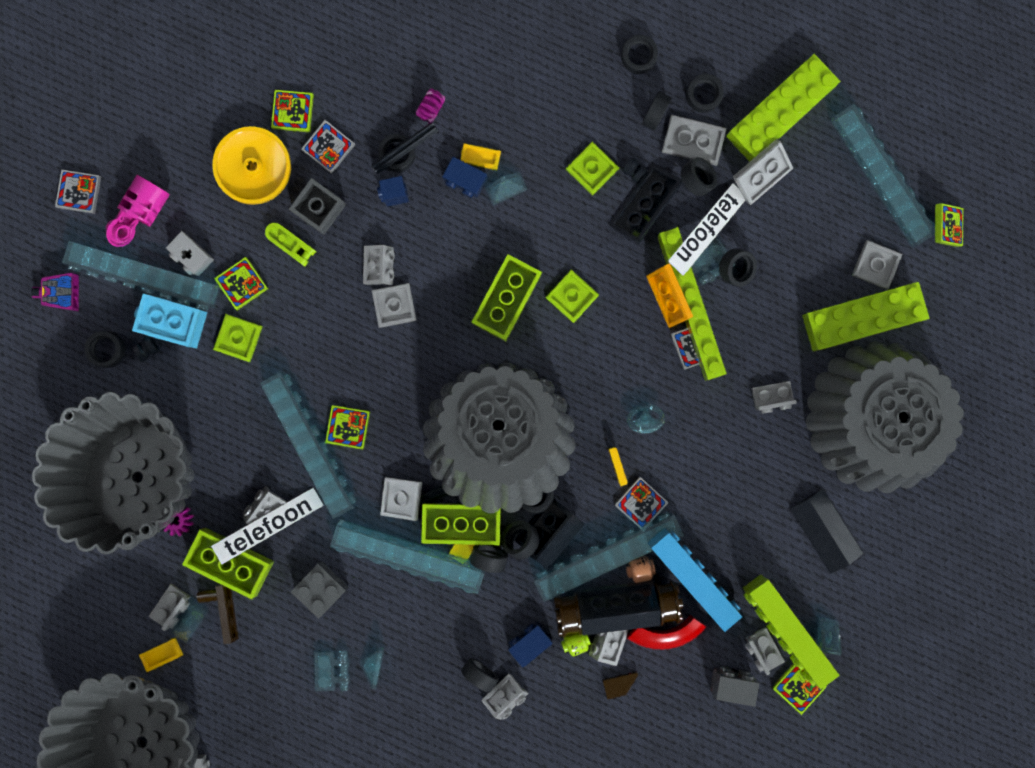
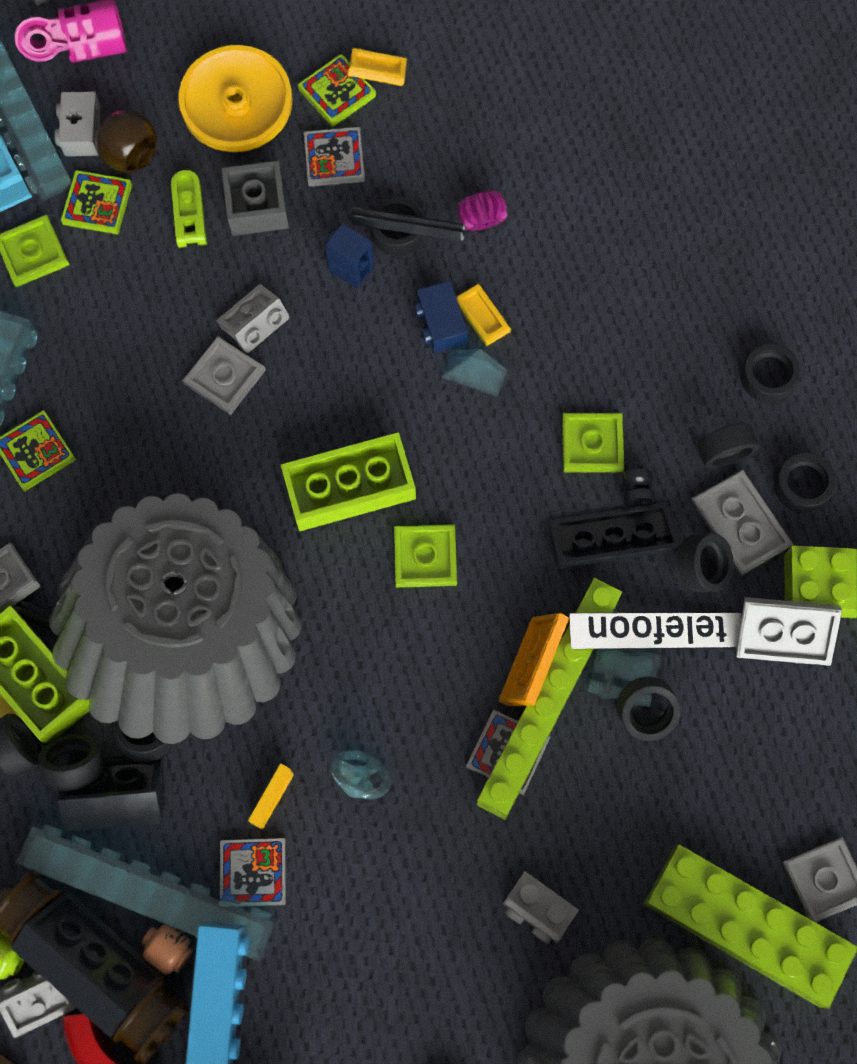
camera: 50 degrees right, 15 degrees down
(226, 240) = (126, 141): none -> dark brown wheel
(299, 79) = (377, 67): none -> yellow tile

